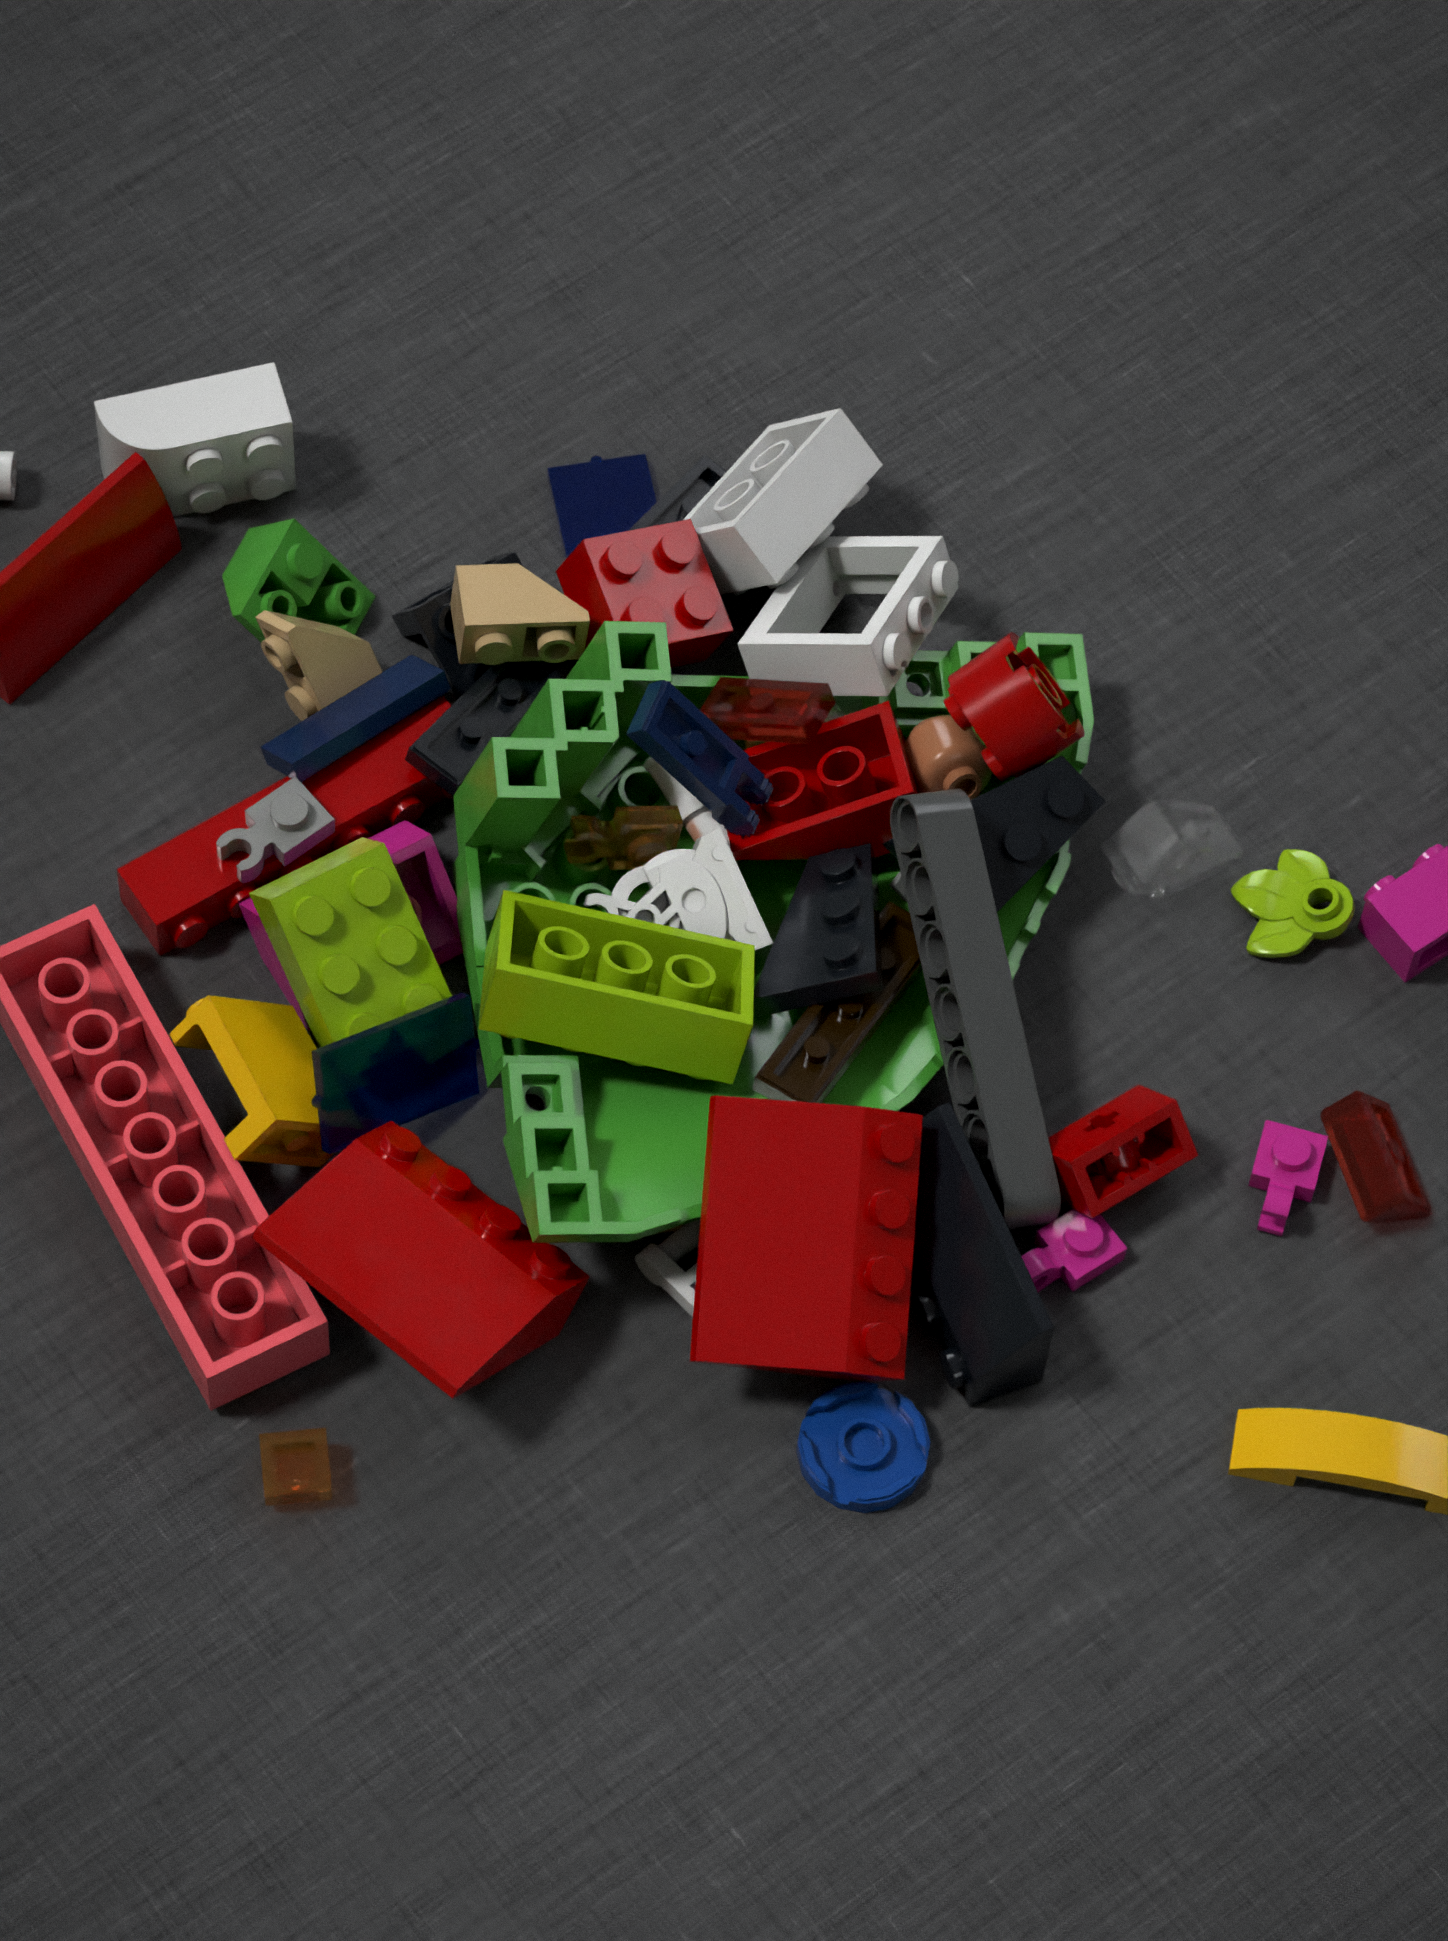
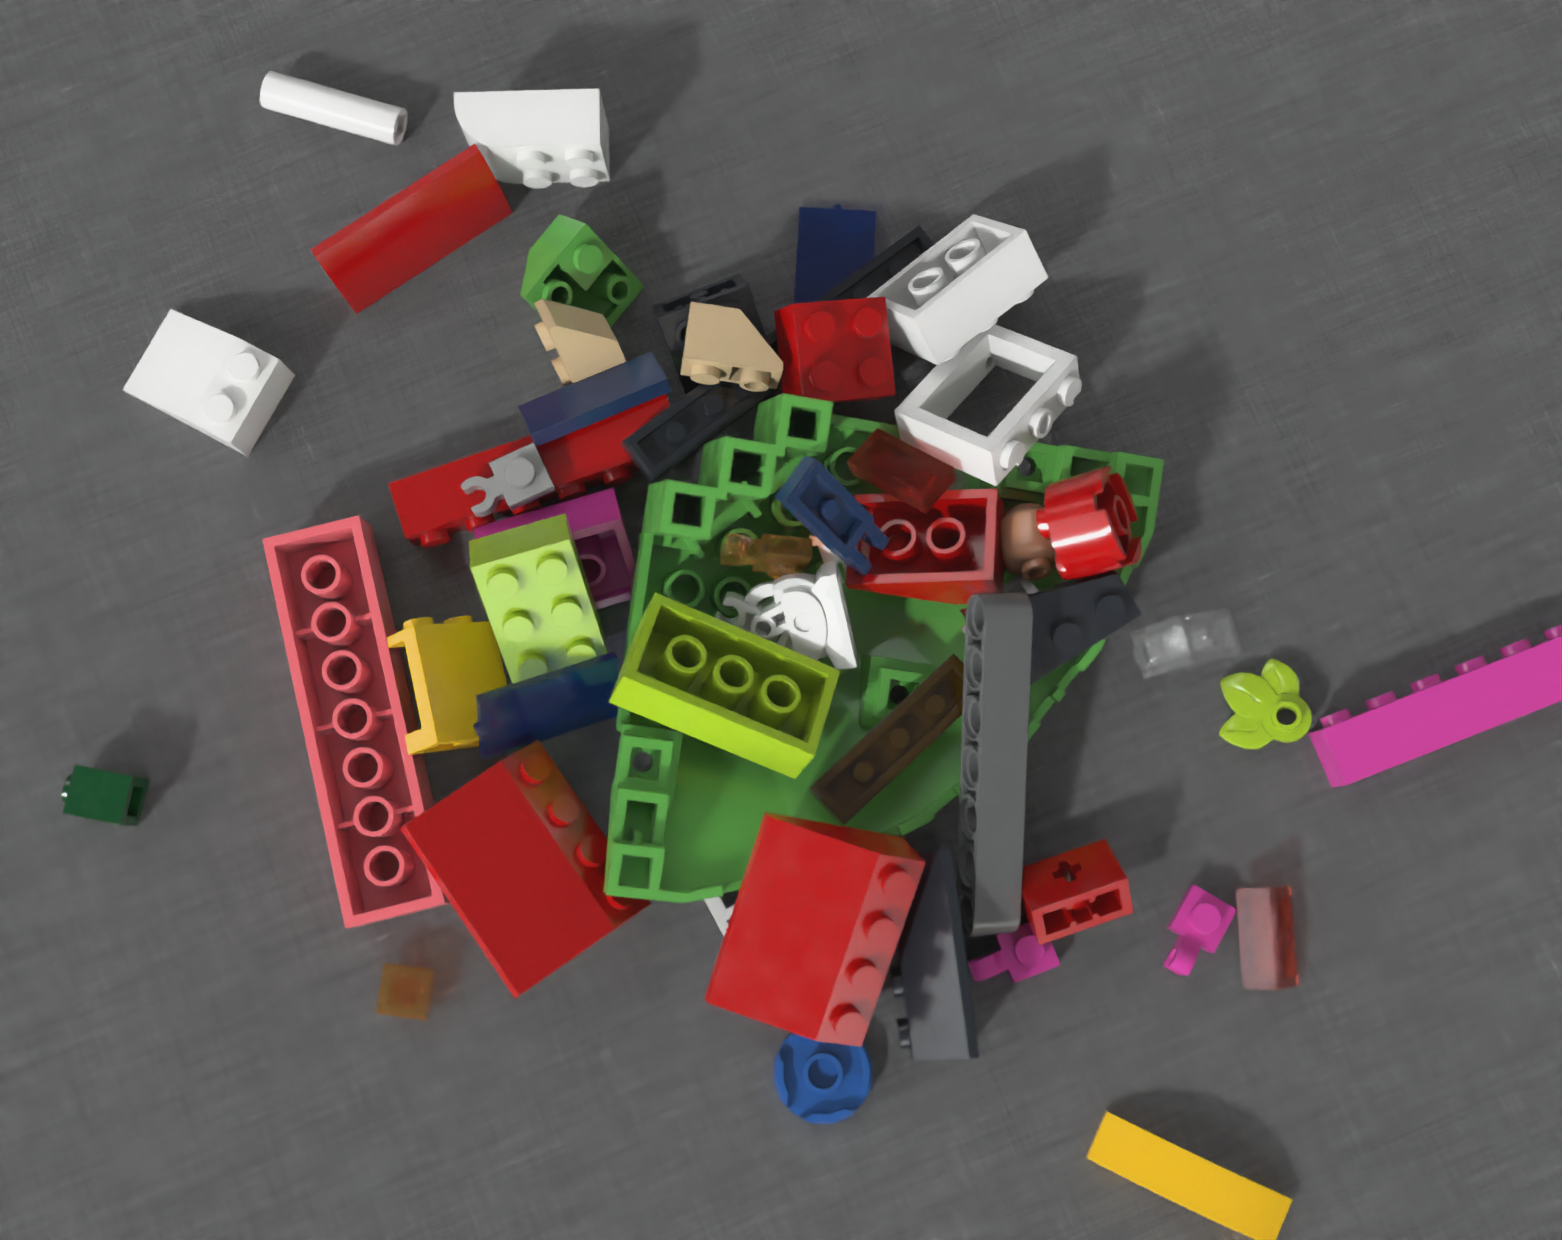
camera: 20 degrees right, 20 degrees up
(827, 937) = (899, 675): black wing -> none

